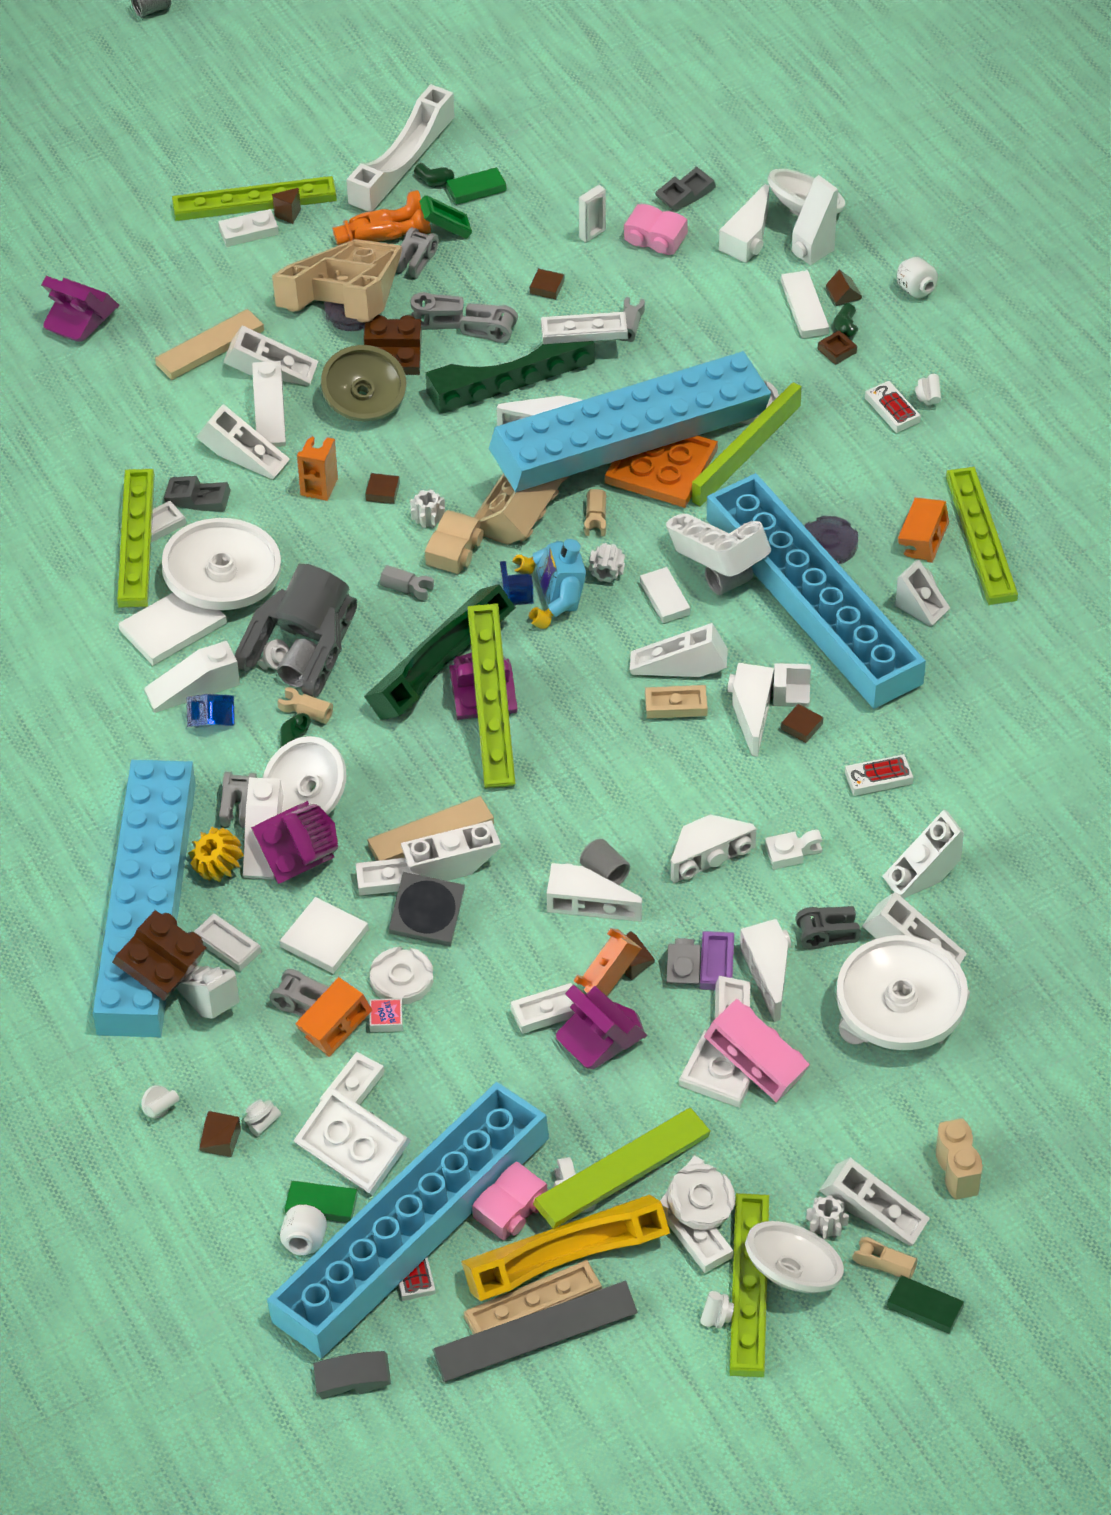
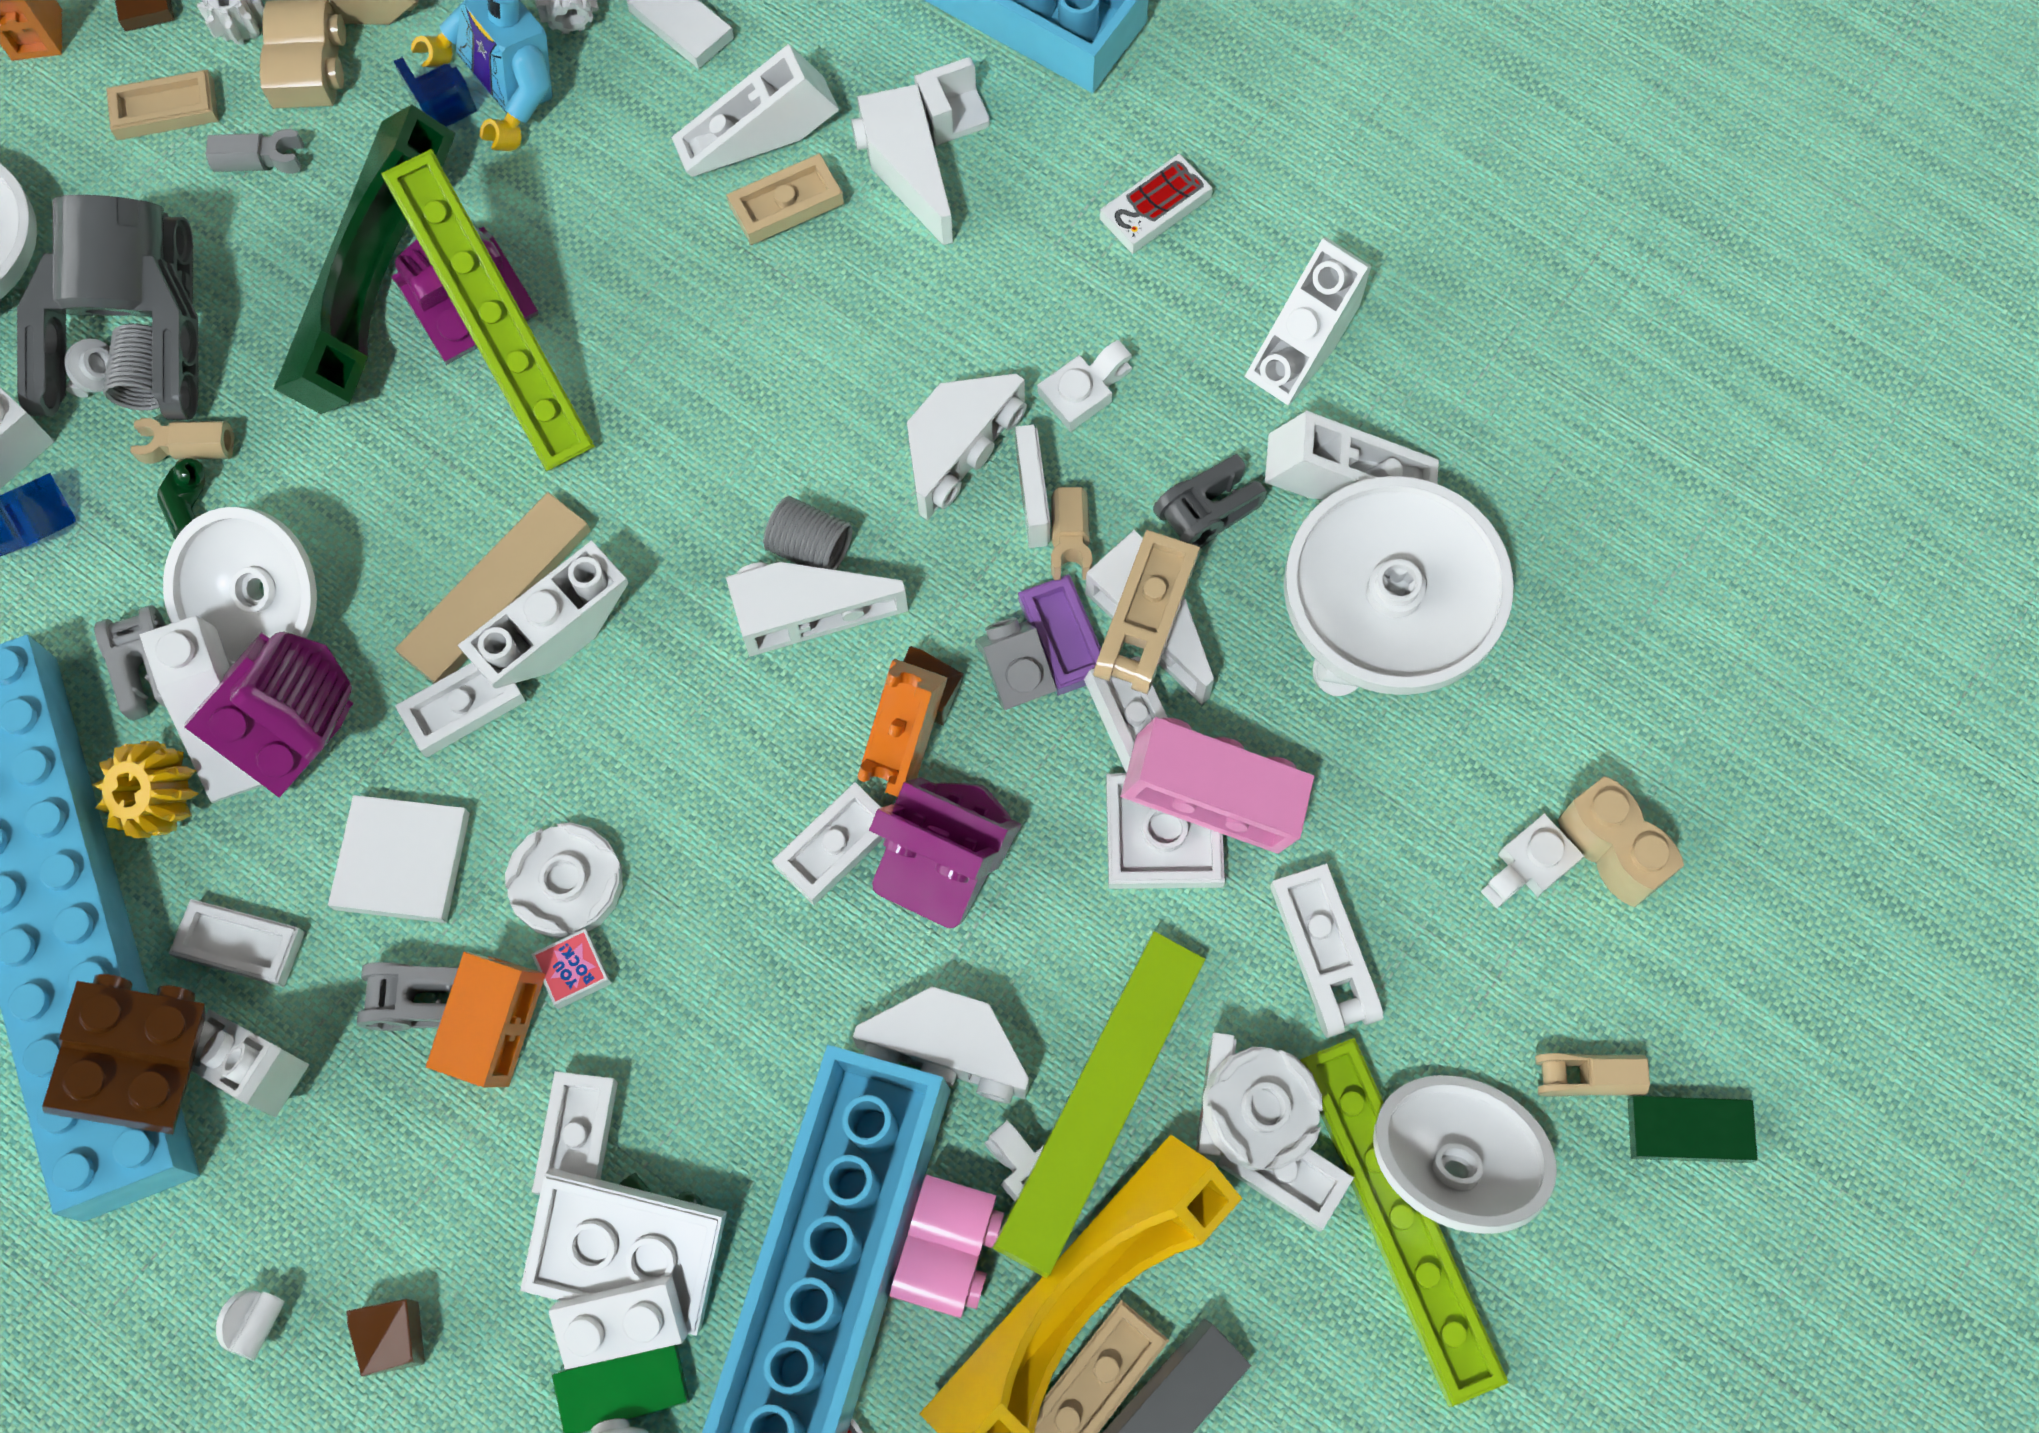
camera: 25 degrees left, 20 degrees up
(261, 1116) = (441, 1265): white plate -> none
(335, 1168) = (618, 1322): none -> white plate
(369, 543) = (162, 104): none -> tan tile
(426, 909) = (552, 742): tile -> none
(564, 1111) = (948, 1039): none -> white slope
(717, 1310) = (1383, 1302): white plate -> none
(735, 883) = (1032, 486): none -> white tile
(745, 910) = (1070, 530): none -> tan bar
(760, 953) = (1147, 609): none -> tan plate
(776, 1149) = (1326, 949): none -> white plate
(802, 723) = (996, 160): reddish brown tile -> none
(827, 1217) = (1474, 1027): white gear -> none
(874, 1201) = (1526, 980): white slope -> none
(910, 1153) = (1533, 859): none -> white plate

